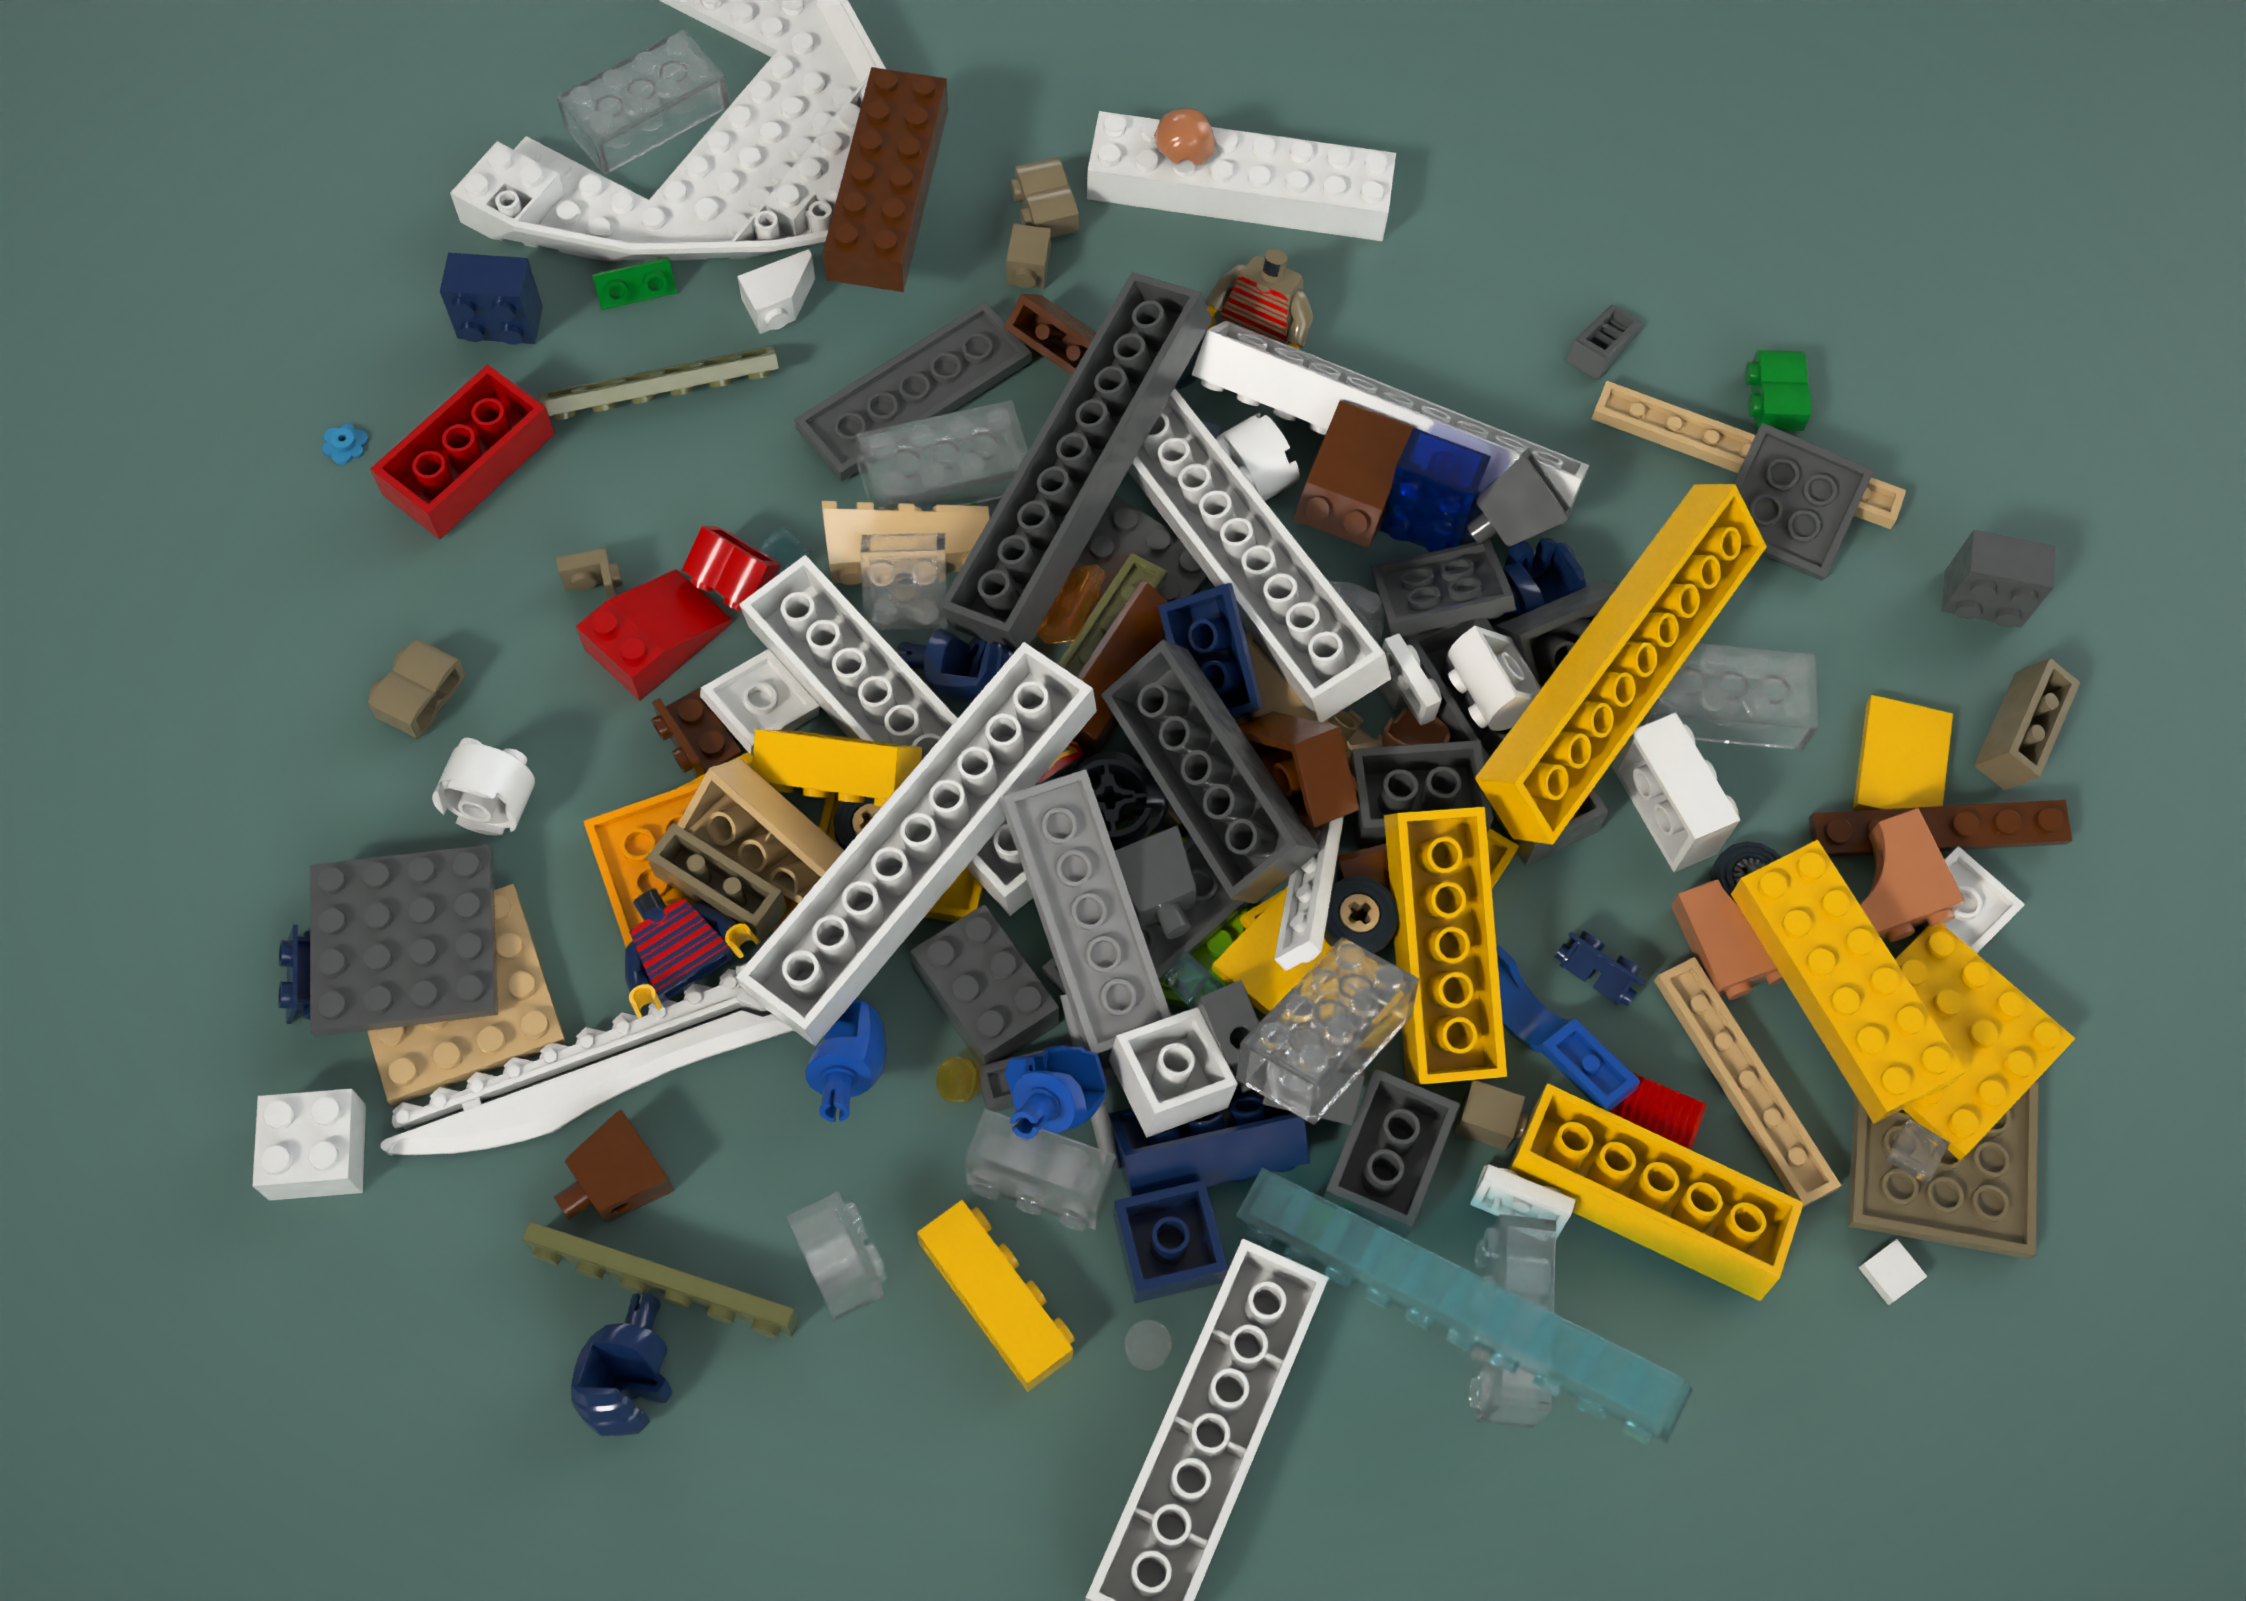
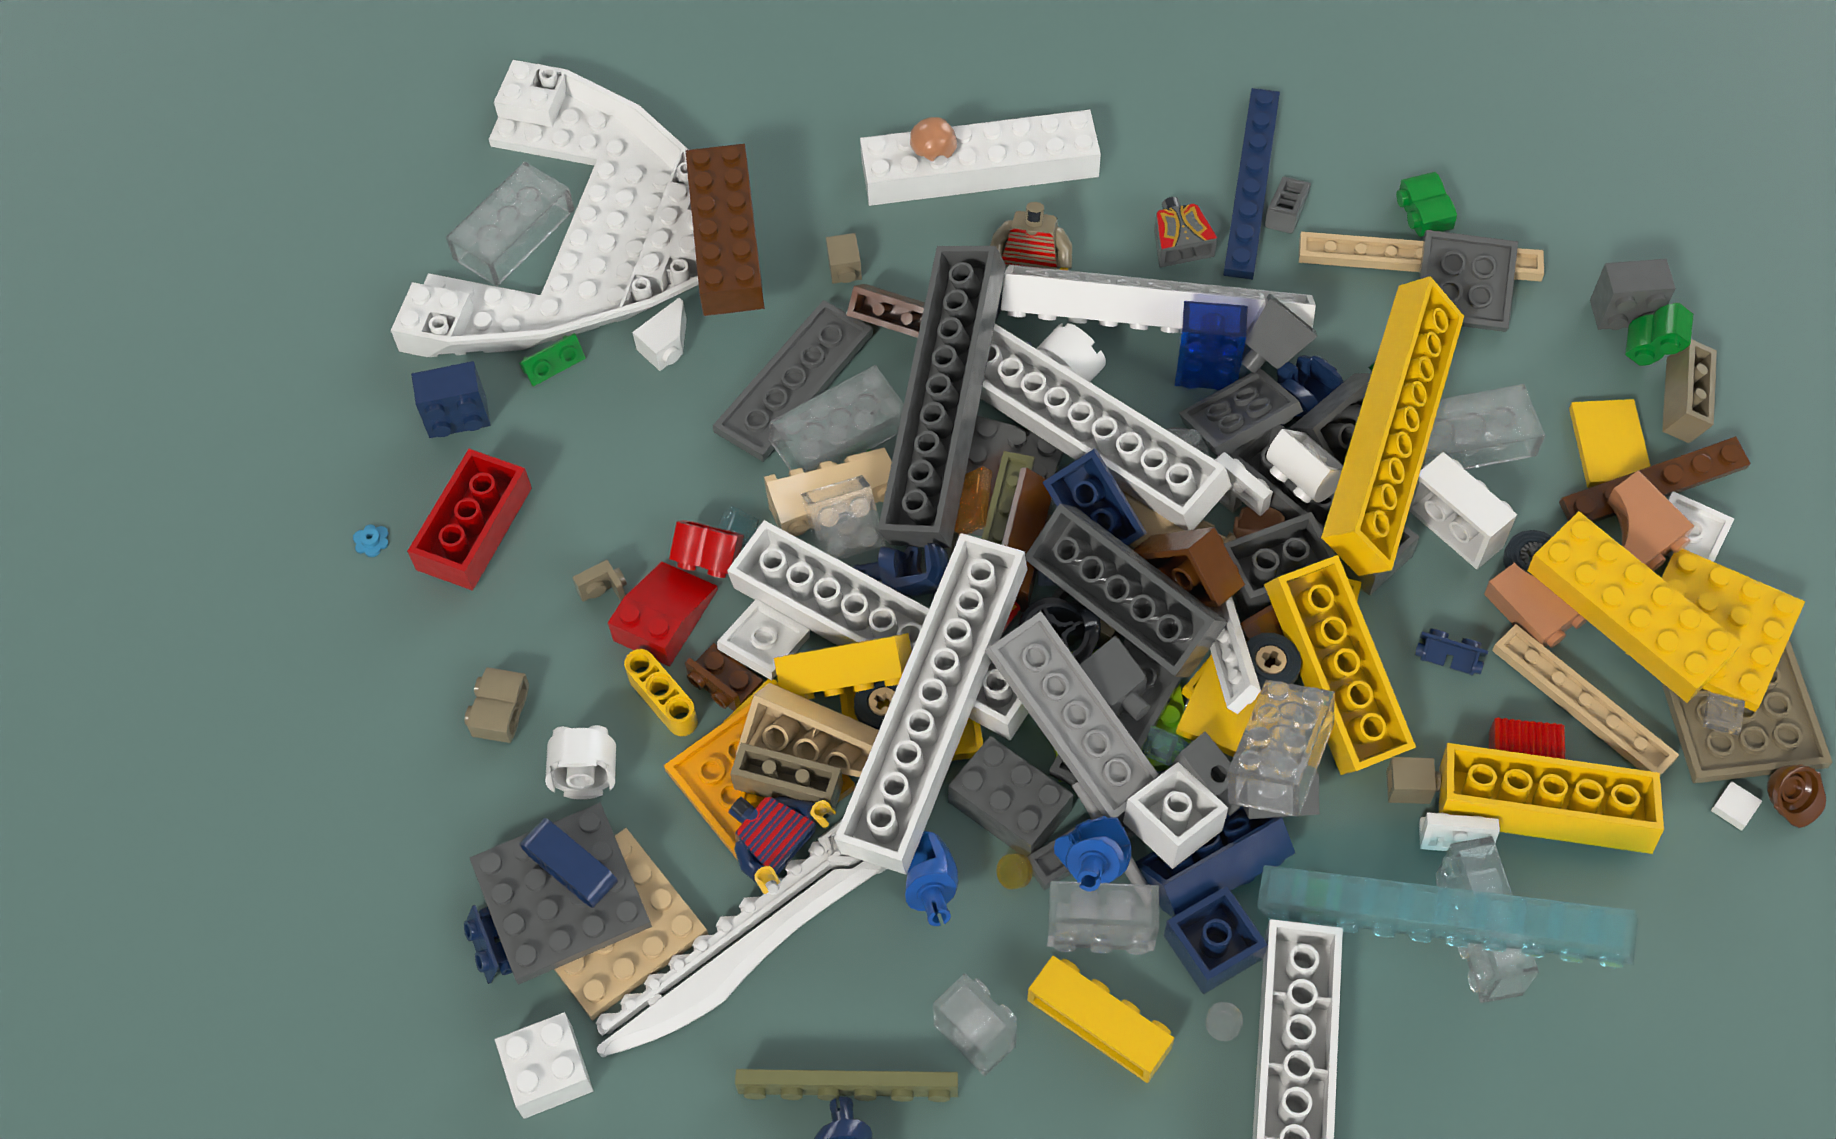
camera: 10 degrees left, 5 degrees down
(417, 908) = (568, 863): none -> dark blue beam
(611, 713) = (665, 705): none -> yellow beam
(613, 1173) = (783, 1016): reddish brown torso -> none
(644, 385) = (611, 421): olive plate -> none
(1045, 197) = (840, 211): dark tan brick -> none
(1353, 474) = (1147, 348): reddish brown slope -> none
(1391, 1152) = (1352, 825): dark grey brick -> none
(1457, 342) = (1182, 234): none -> torso
(1562, 1041) = (1450, 713): blue piece -> none
(1568, 303) = (1251, 184): none -> dark blue plate
(1974, 1282) = (1797, 794): none -> reddish brown hat
(2014, 640) = (1659, 334): none -> green brick

